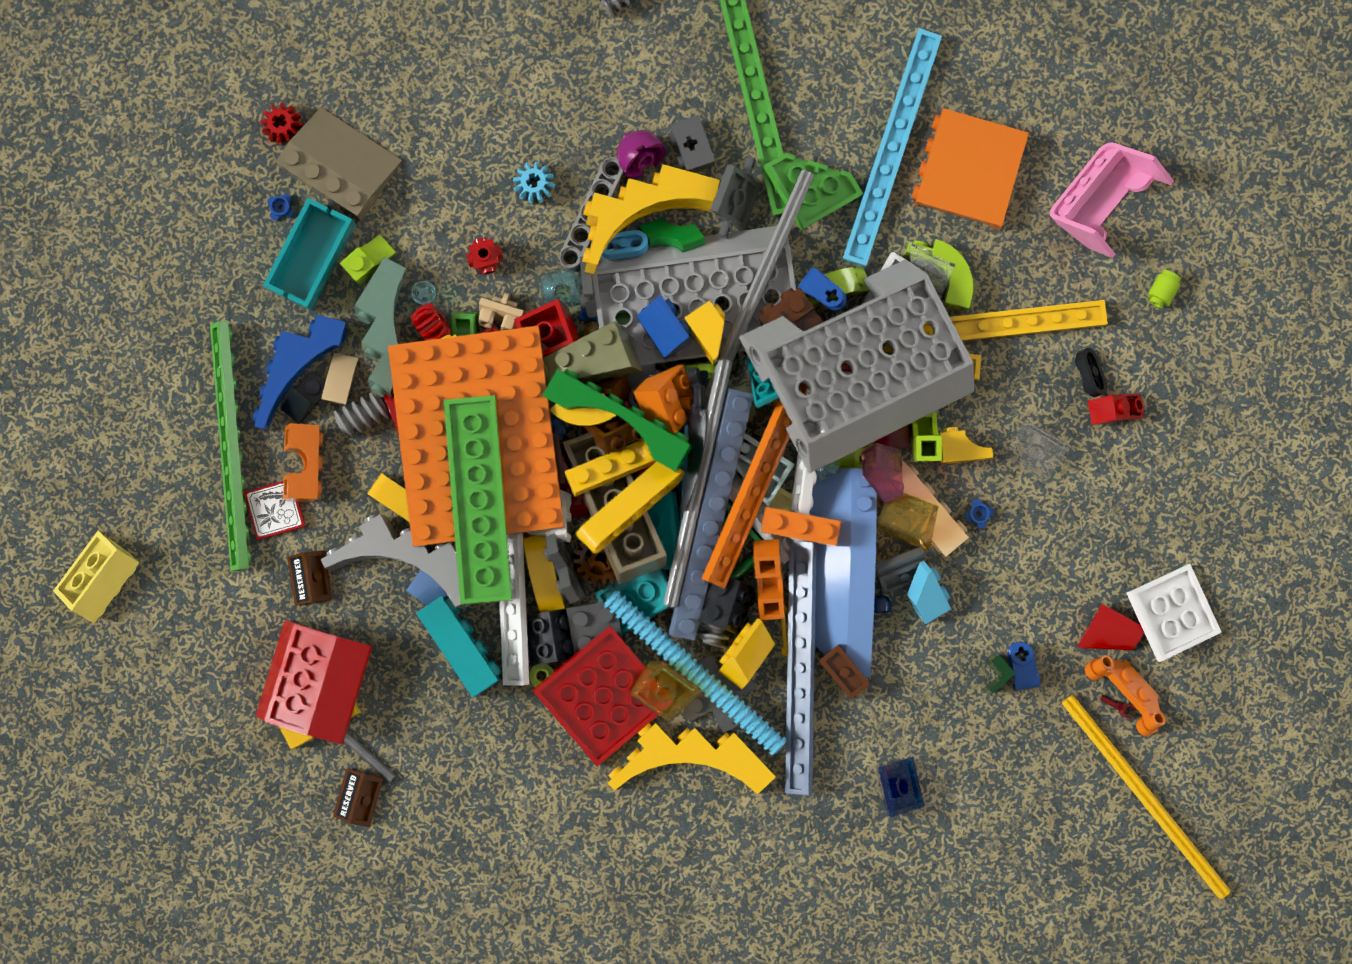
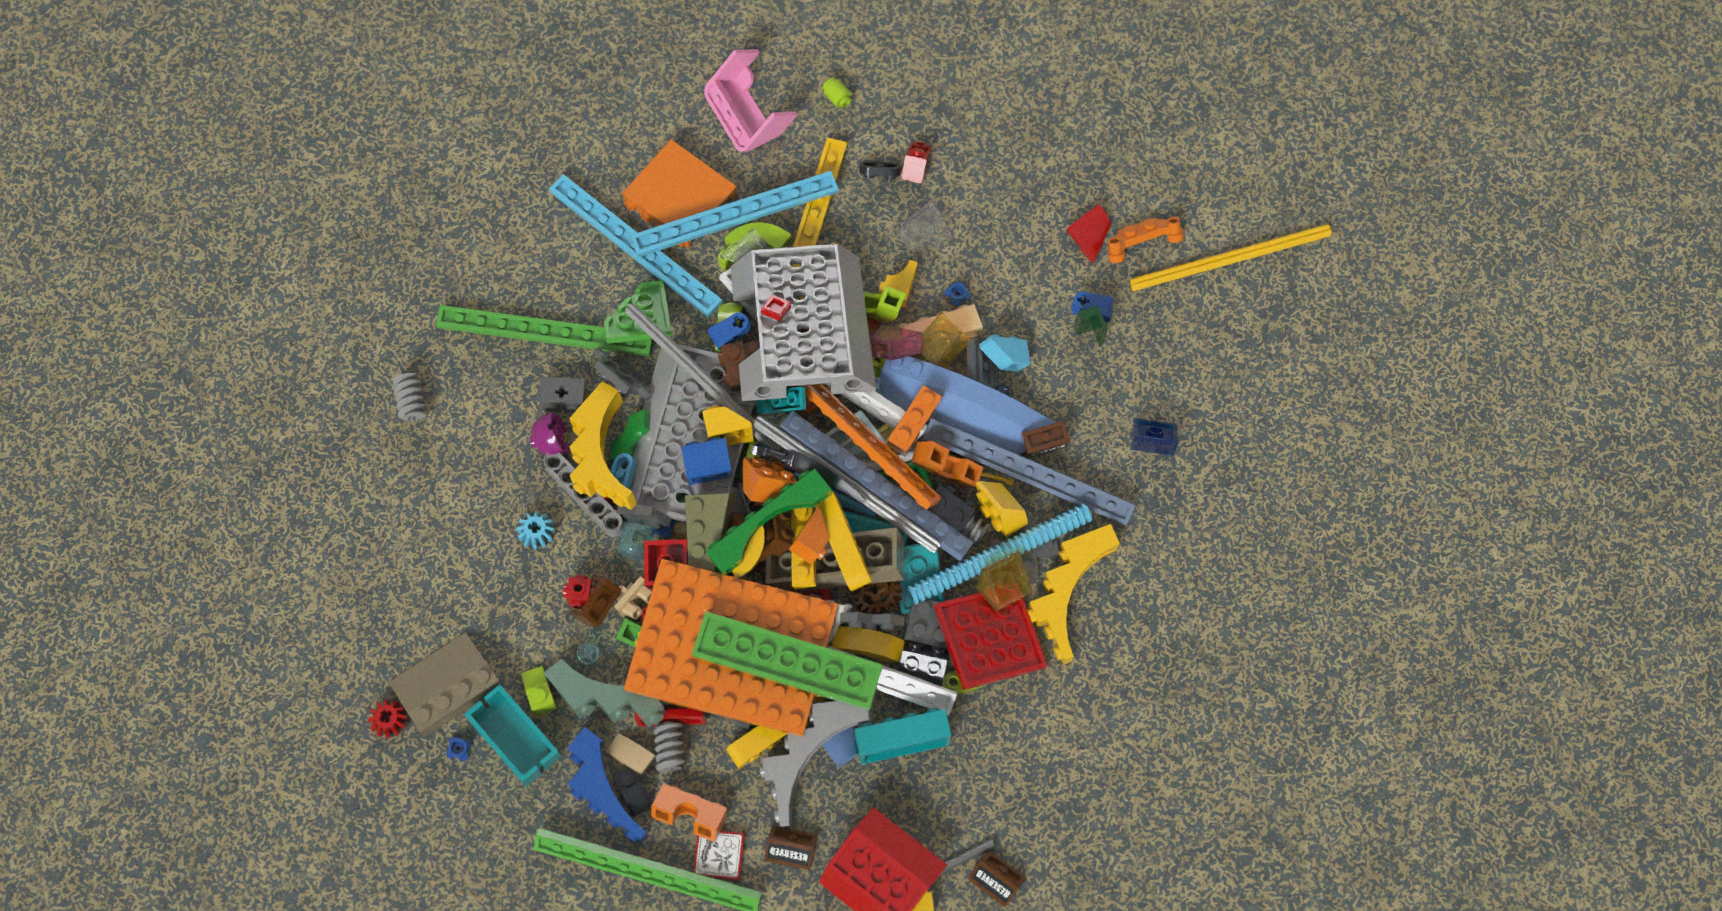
camera: 70 degrees left, 15 degrees down
(430, 322) = (616, 656): red gear -> none
(479, 280) = (598, 602): none -> reddish brown panel
(619, 472) = (811, 539): none -> orange slope
(860, 329) = (776, 307): none -> tile
(966, 238) = (734, 214): none -> medium azure plate
(1118, 706) = (1154, 249): dark red hand -> none
(1173, 612) = (1094, 180): white plate -> none

